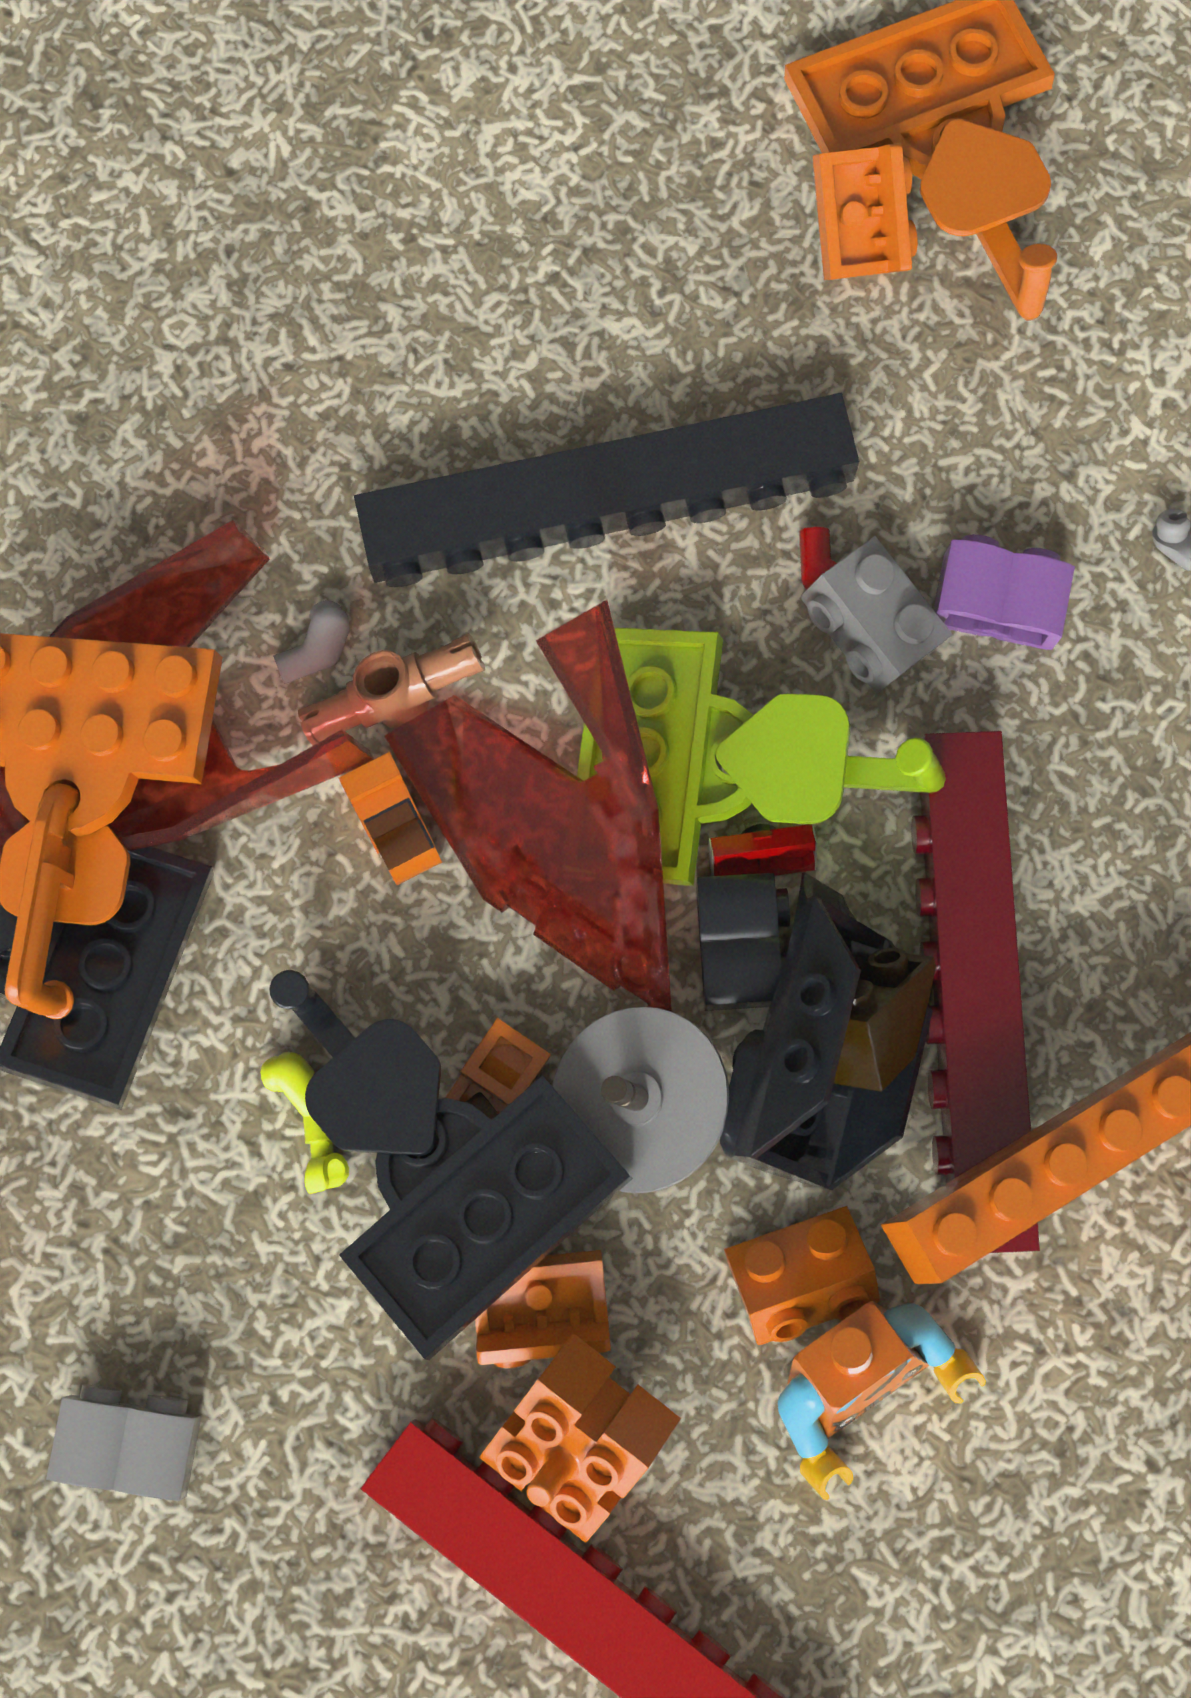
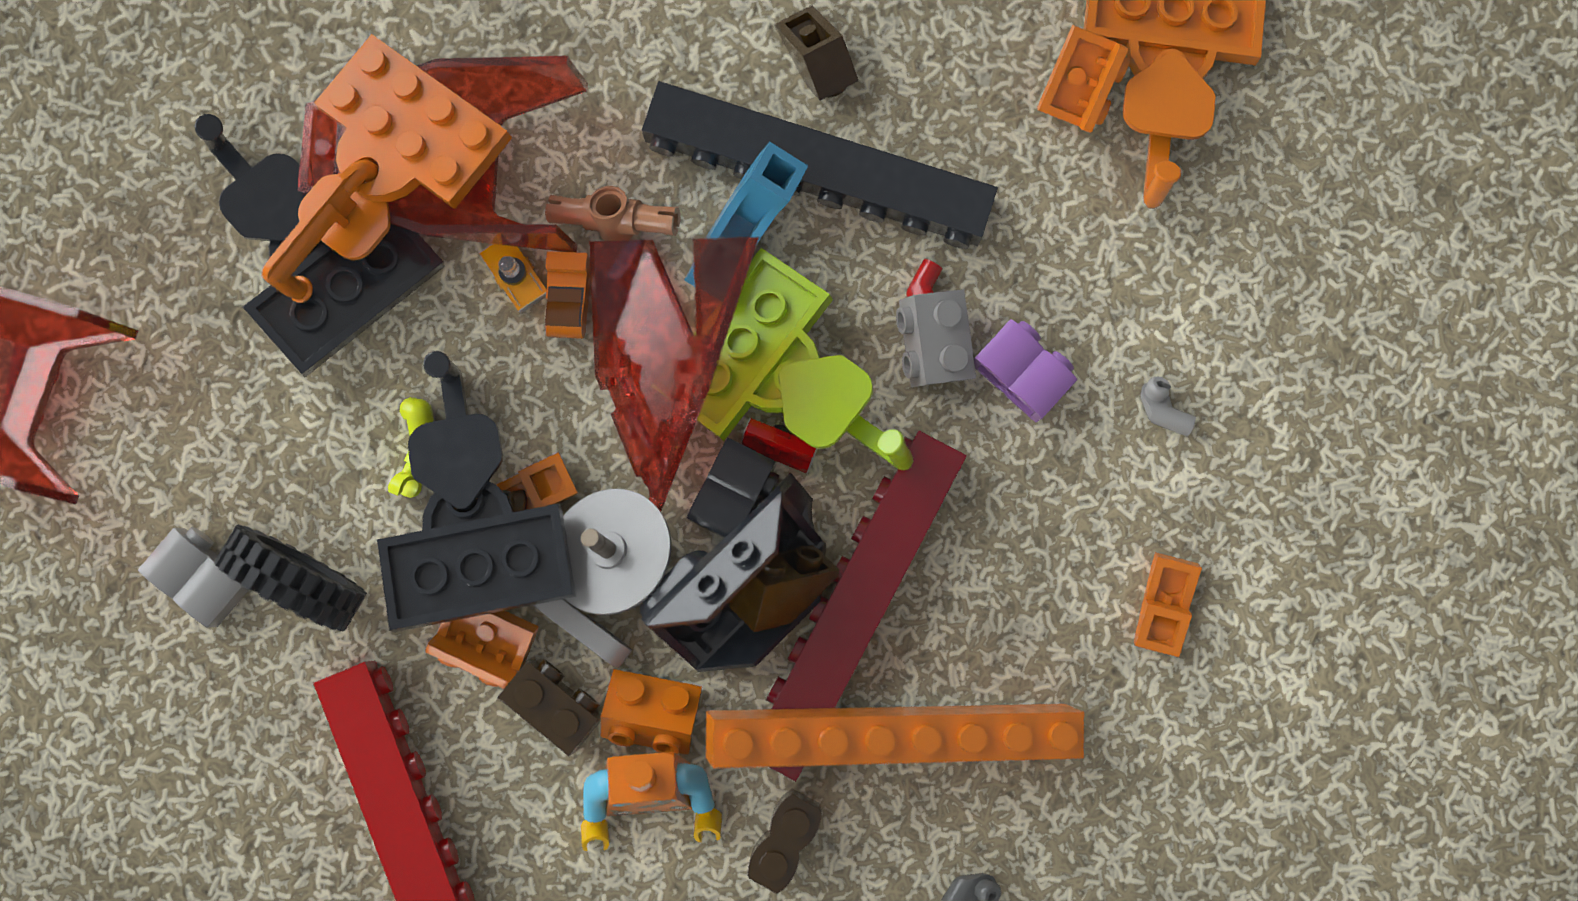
camera: 30 degrees right, 5 degrees up
(257, 1368) = (290, 578): none -> black tyre
(308, 834) = (514, 275): none -> light orange piece
(321, 645) = (589, 162): light grey arm -> none
(525, 357) = (818, 52): none -> dark brown slope
(558, 584) = (758, 197): none -> dark azure arch
(580, 1439) = (455, 729): orange brick -> none
(664, 1219) = (586, 631): none -> light grey beam
(678, 1340) = (551, 705): none -> dark brown brick
(1067, 1354) = (777, 850): none -> dark brown brick

